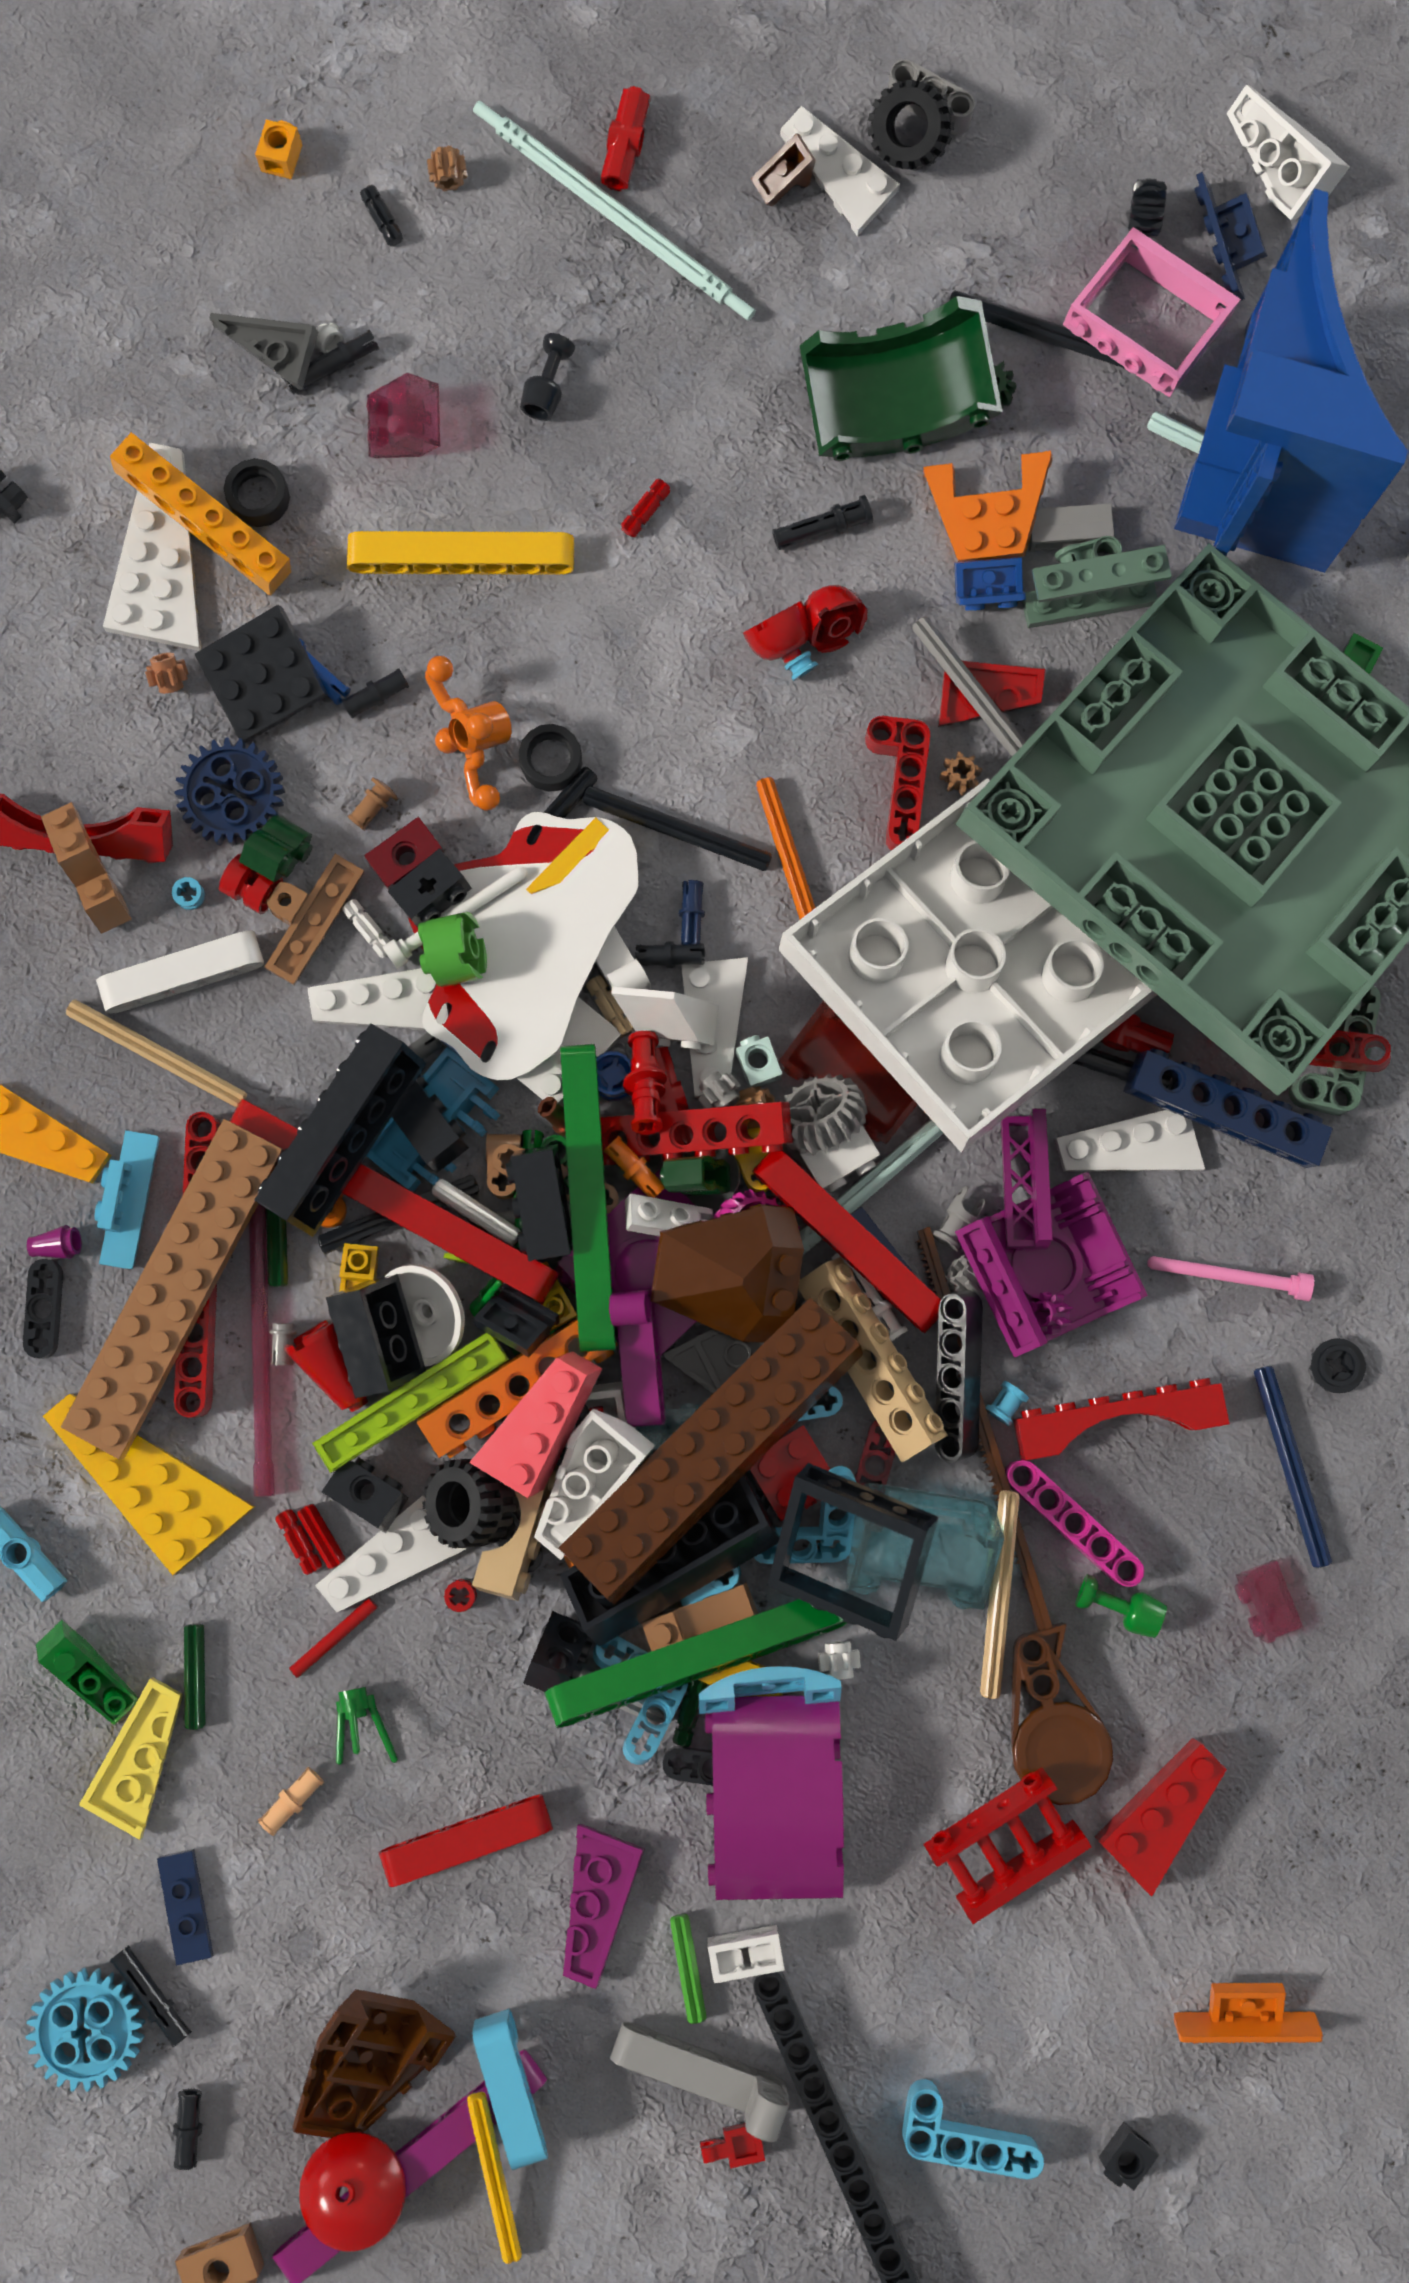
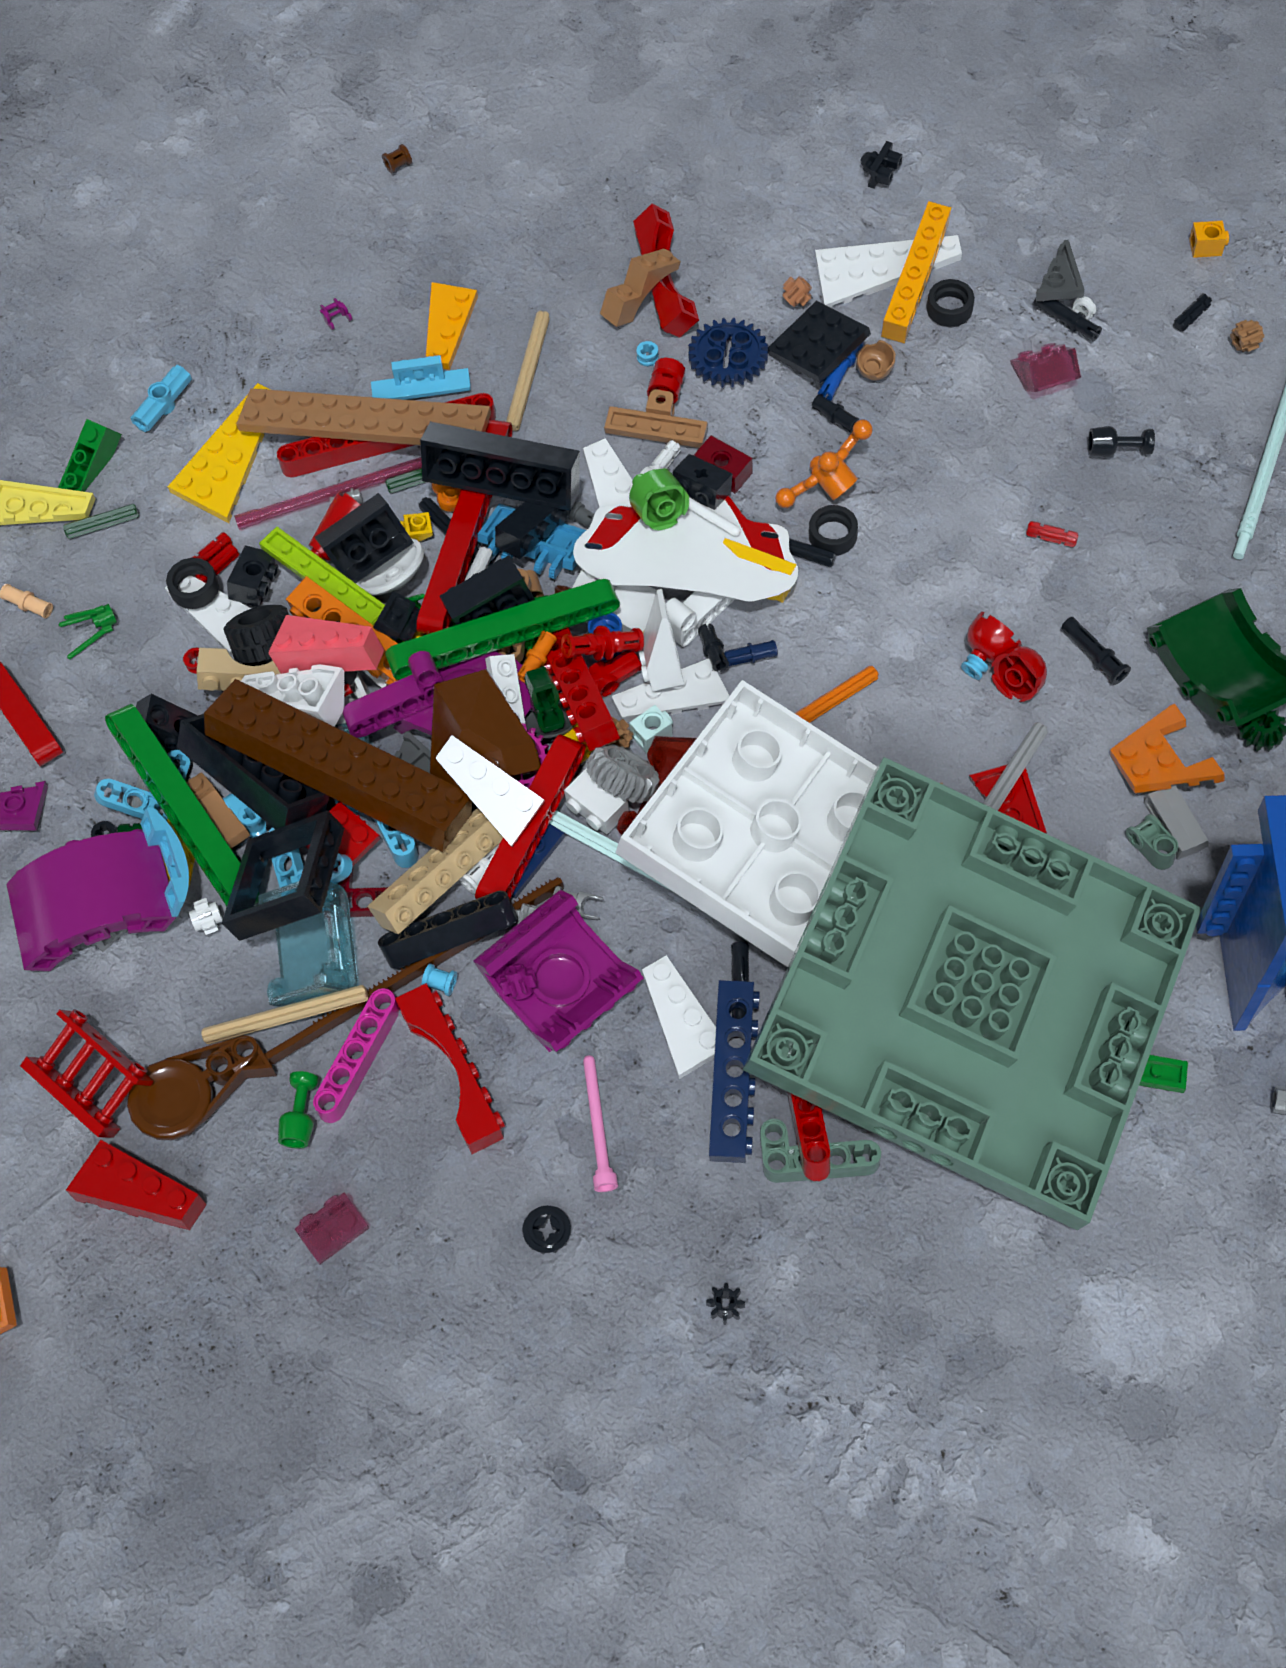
camera: 80 degrees right, 20 degrees down
(32, 1298) = (340, 367): black beam -> none
(57, 1243) = (378, 356): magenta cone -> none
(180, 972) = (589, 363): white beam -> none
(276, 848) = (696, 384): dark green brick -> none
(317, 615) = (876, 360): none -> medium nougat hair
(327, 1574) = (197, 598): none -> black tyre
(333, 1637) = (147, 593): red bar -> none
(372, 803) = (757, 435): medium nougat pin -> none
(460, 552) = (963, 432): yellow beam -> none
(677, 828) = (813, 628): black axle -> none
(719, 1090) = (618, 701): light grey gear -> none
(822, 1271) = (493, 791): none -> white wing
(906, 755) = (932, 755): red beam -> none
(989, 582) = (1101, 774): blue bracket -> none
(1039, 1180) = (622, 944): magenta fence -> none
(1095, 586) = (1126, 835): sand green fence -> none
(1138, 1037) = (768, 981): red piece -> none
(1292, 1467) = (450, 1217): dark blue axle -> none

